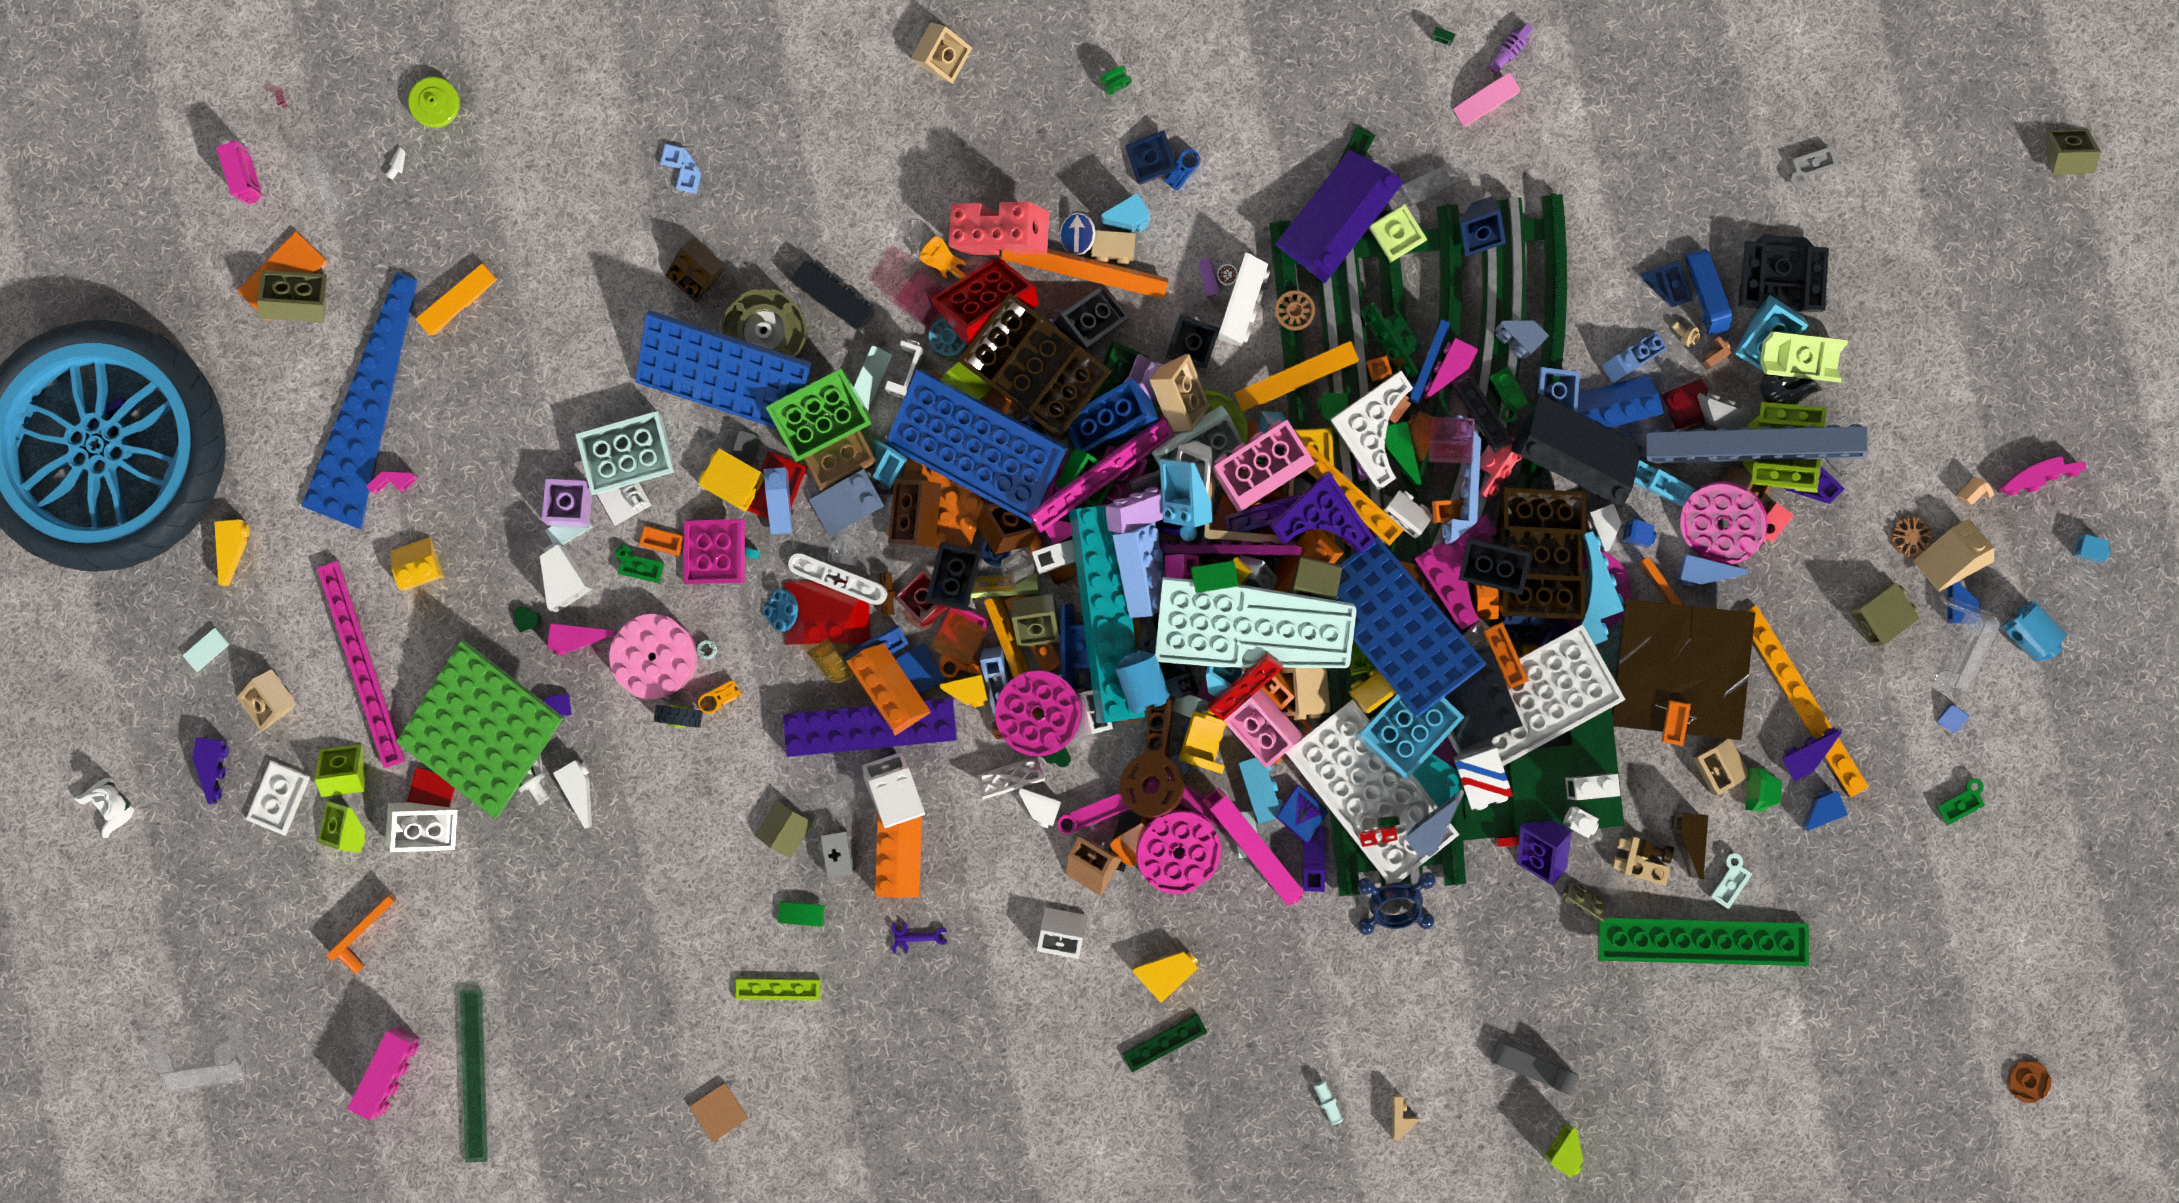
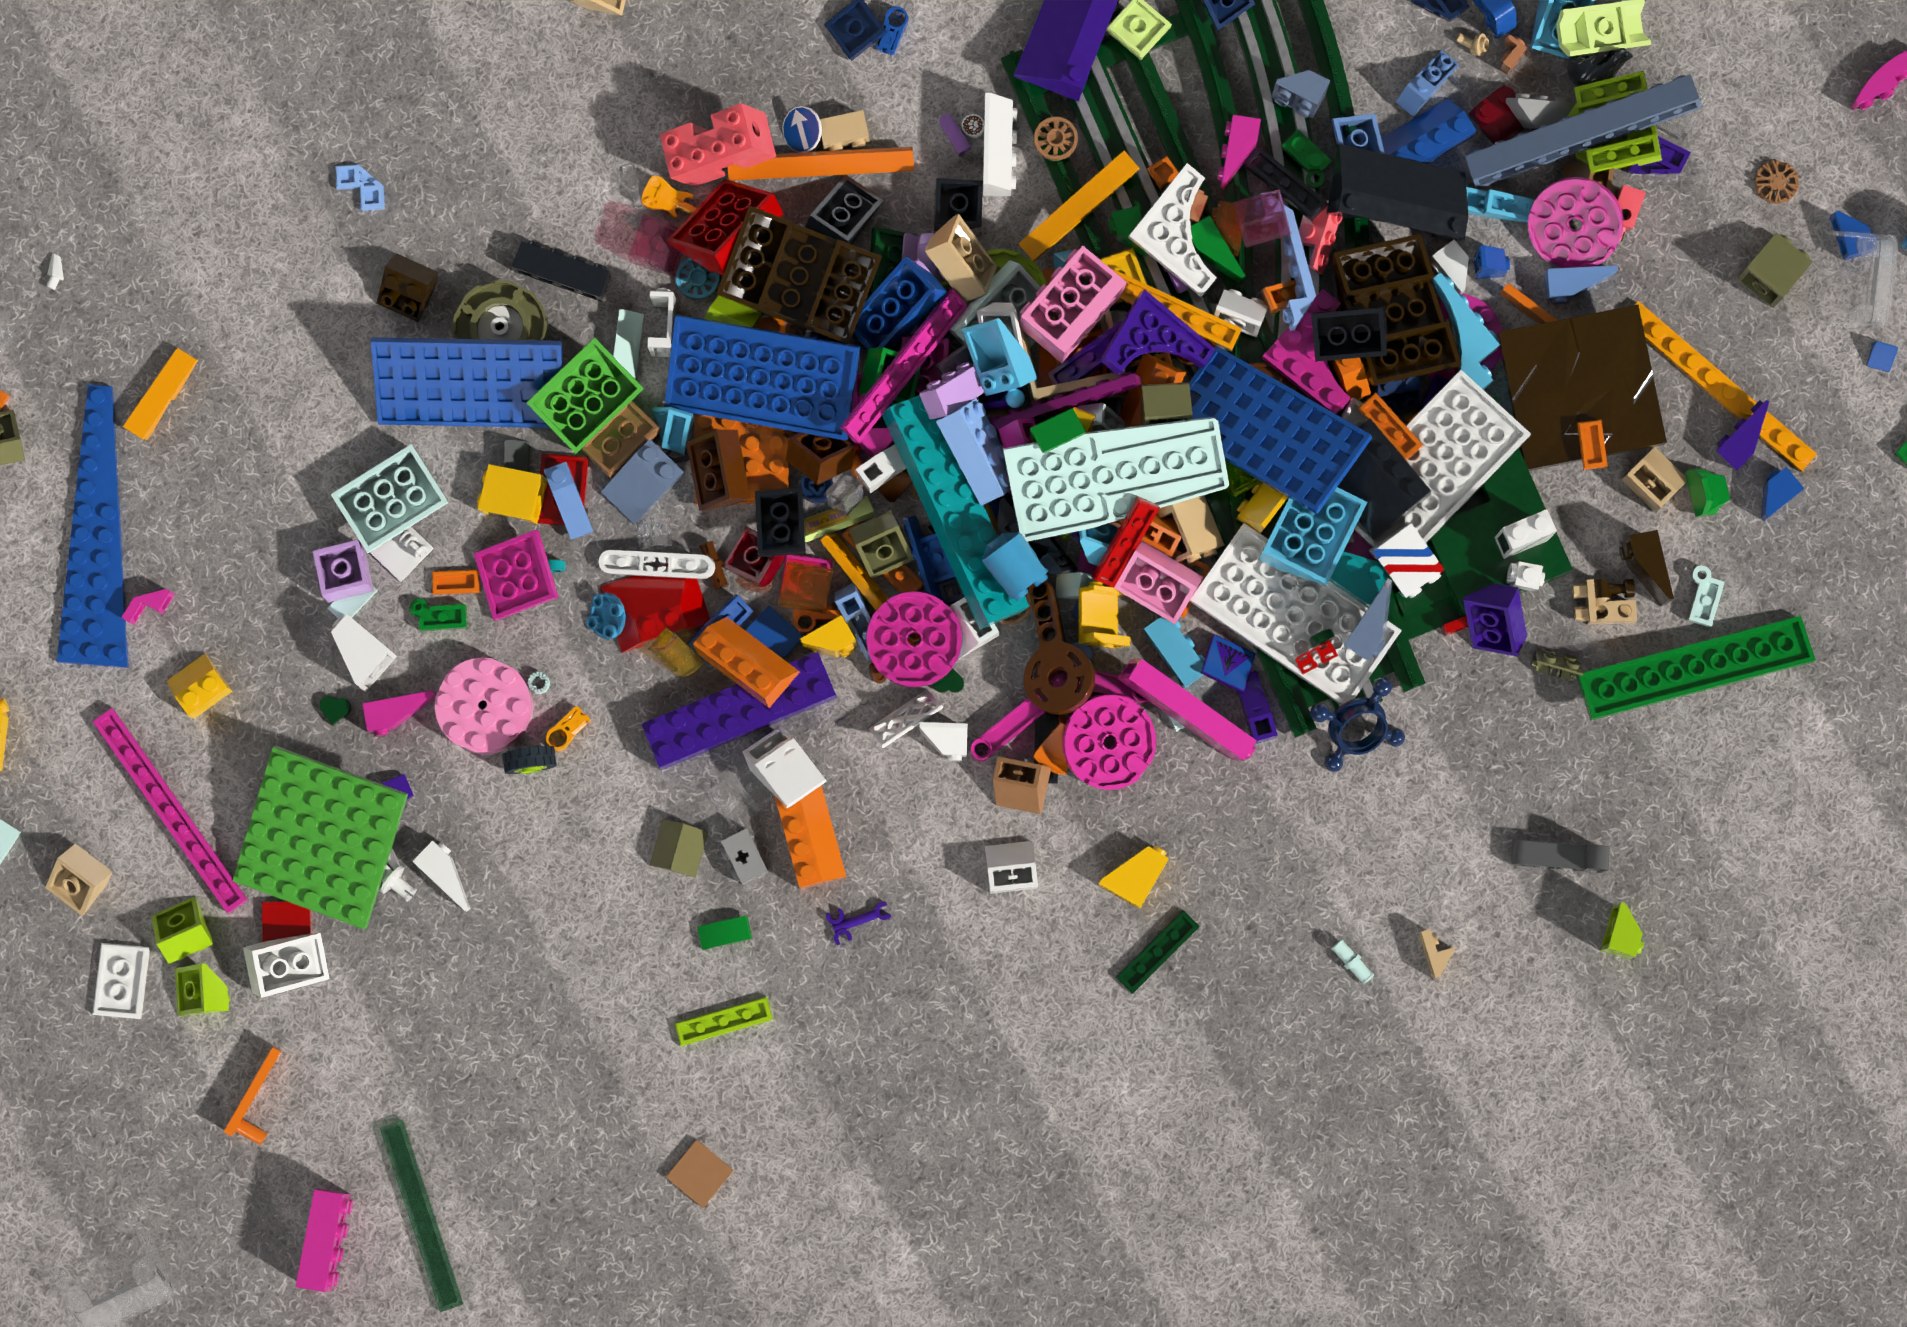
camera: 15 degrees left, 5 degrees down
(206, 757) = (31, 959): dark purple slope -> none
(434, 102) = (76, 195): lime wheel -> none
(1128, 215) = (849, 94): medium azure slope -> none
(1394, 338) = (1168, 134): dark green bracket -> none
(1418, 388) = (1210, 182): blue piece -> none
(1955, 555) = (1829, 185): tan slope -> none
(1974, 490) = (1827, 113): light nougat tile -> none

